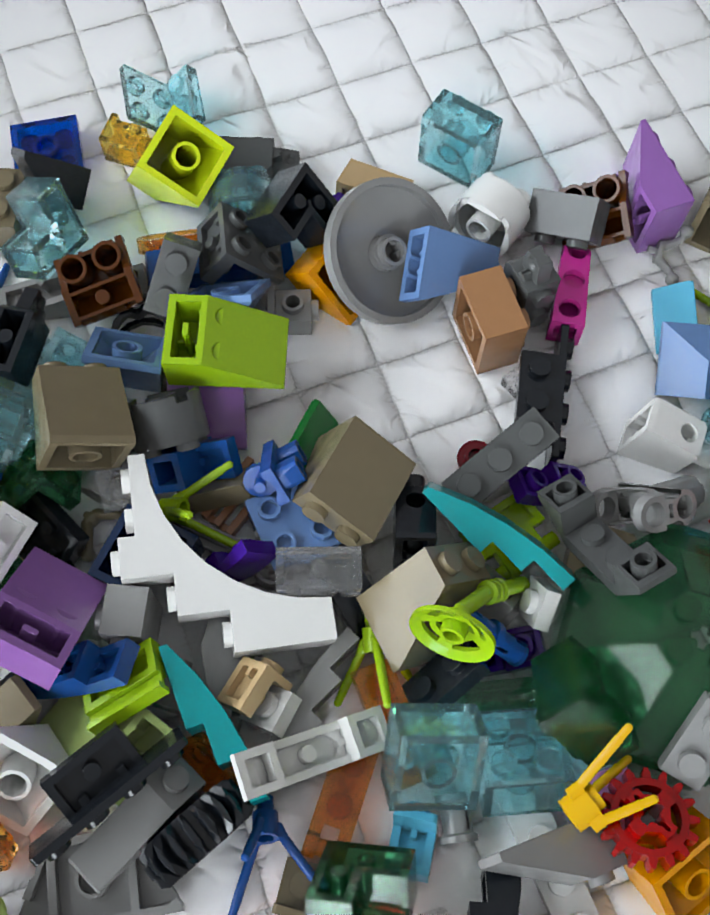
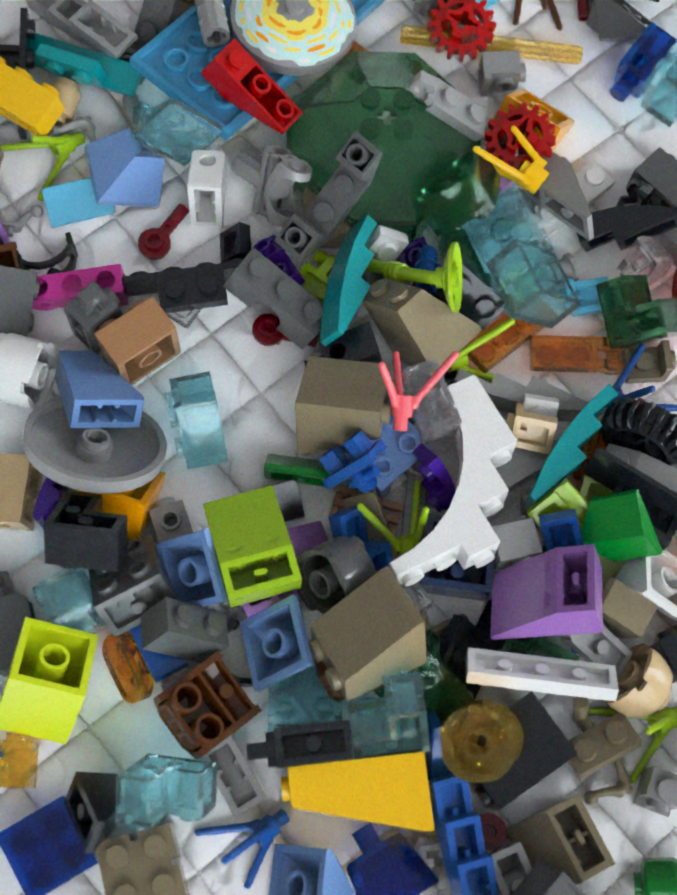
camera: 115 degrees left, 5 degrees up
(84, 732) = (620, 527): none -> green slope
(279, 419) = (289, 499): none -> black slope
(309, 753) = (559, 371): white slope -> none
(320, 531) = (403, 404): none -> coral plant
(393, 351) = (196, 413): none -> clear light blue brick
(586, 453) = (235, 242): none -> black plate
(609, 379) = (155, 242): none -> dark red plate
(619, 297) = (69, 250): none -> black helmet

